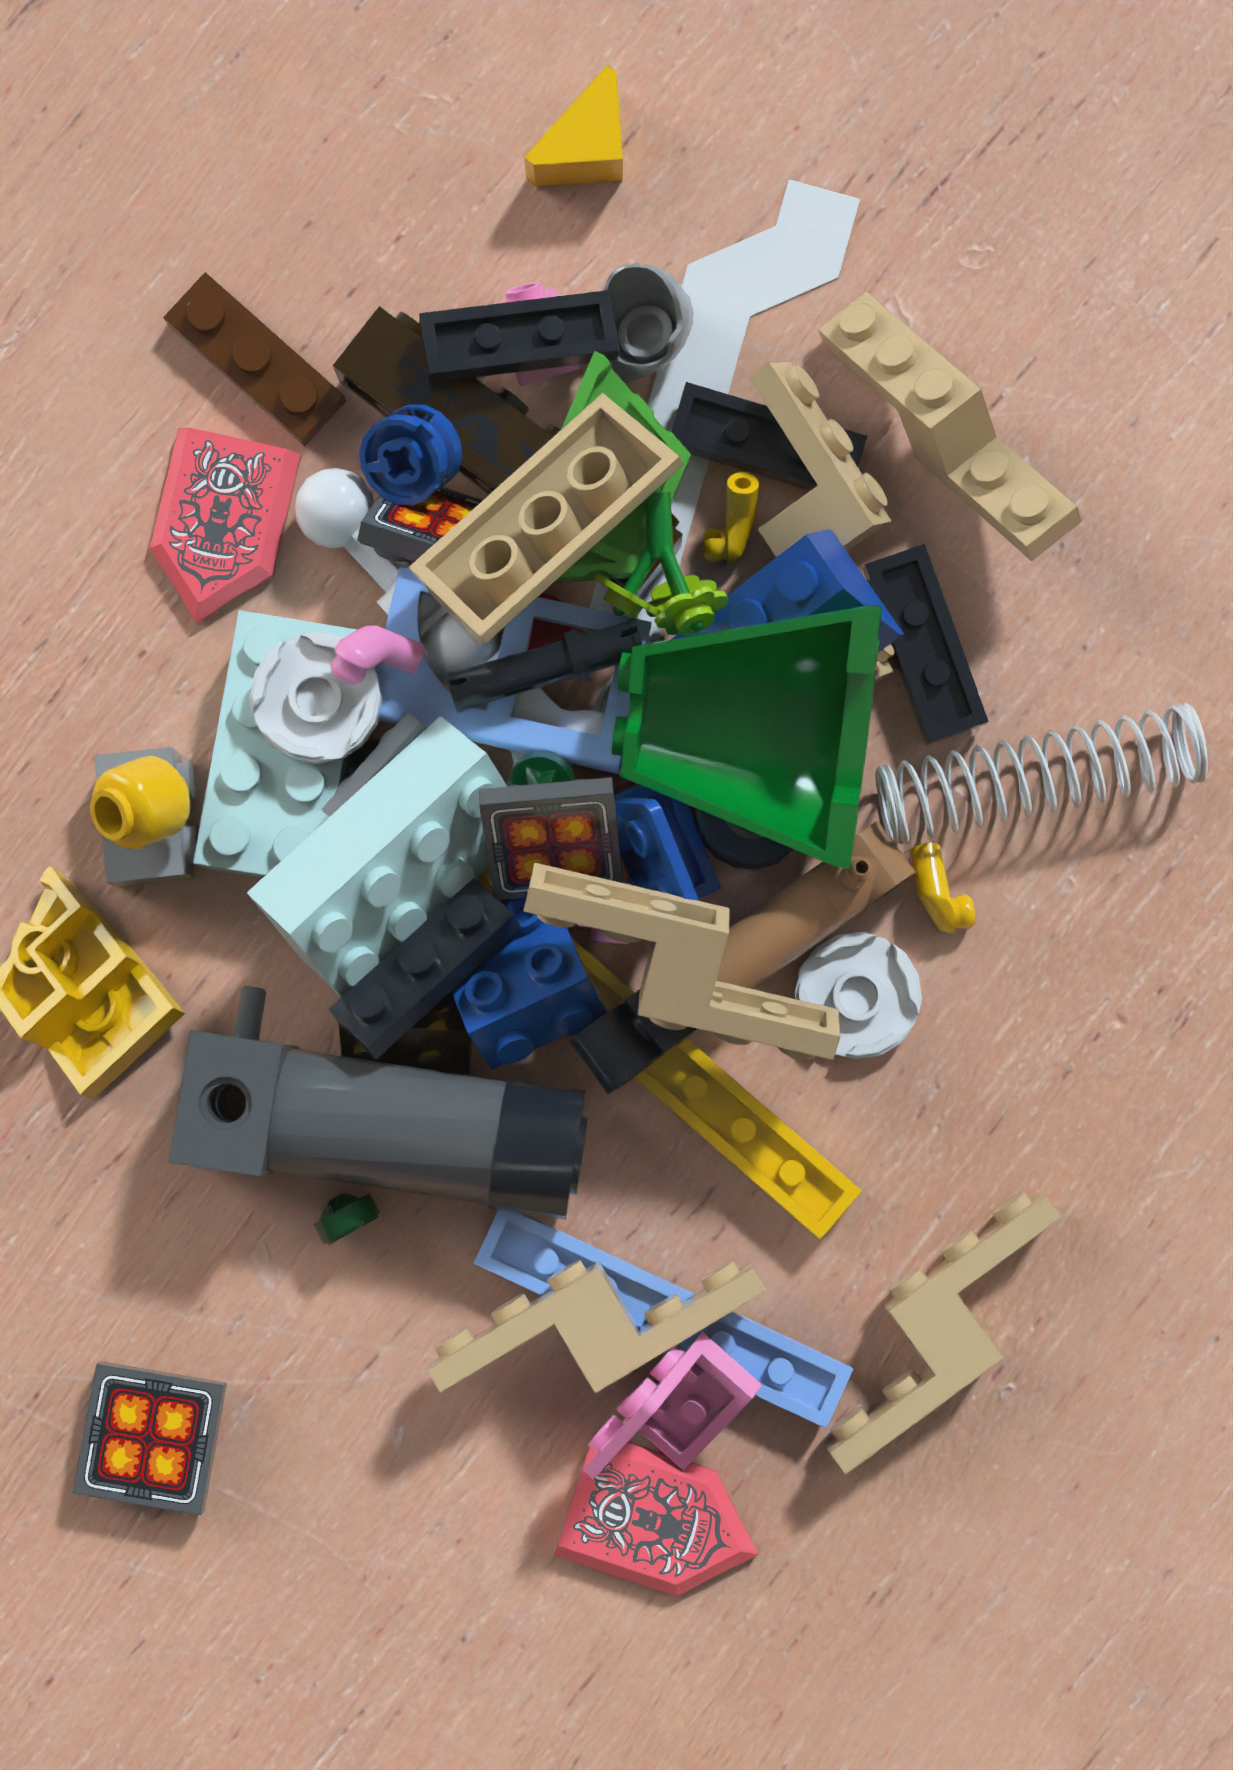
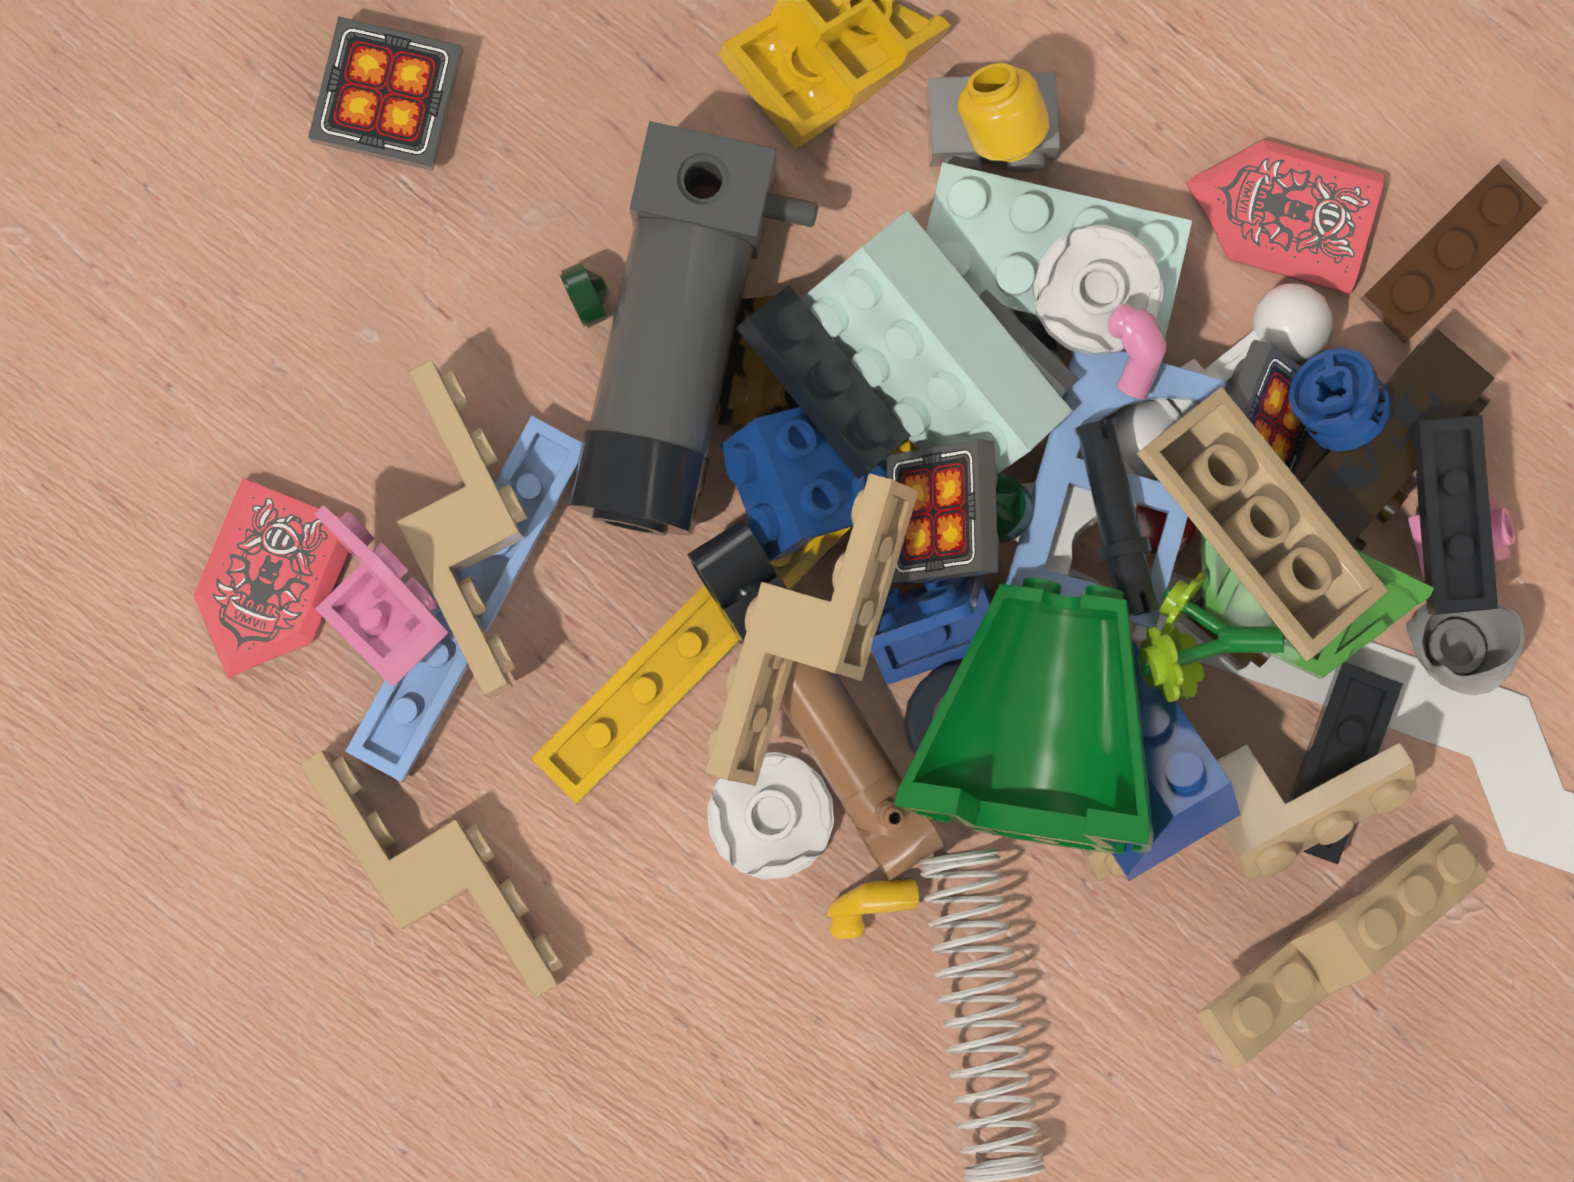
camera: 90 degrees right, 0 degrees up
(740, 517) = (1259, 730): yellow arm -> none
(930, 649) = (1120, 909): black plate -> none

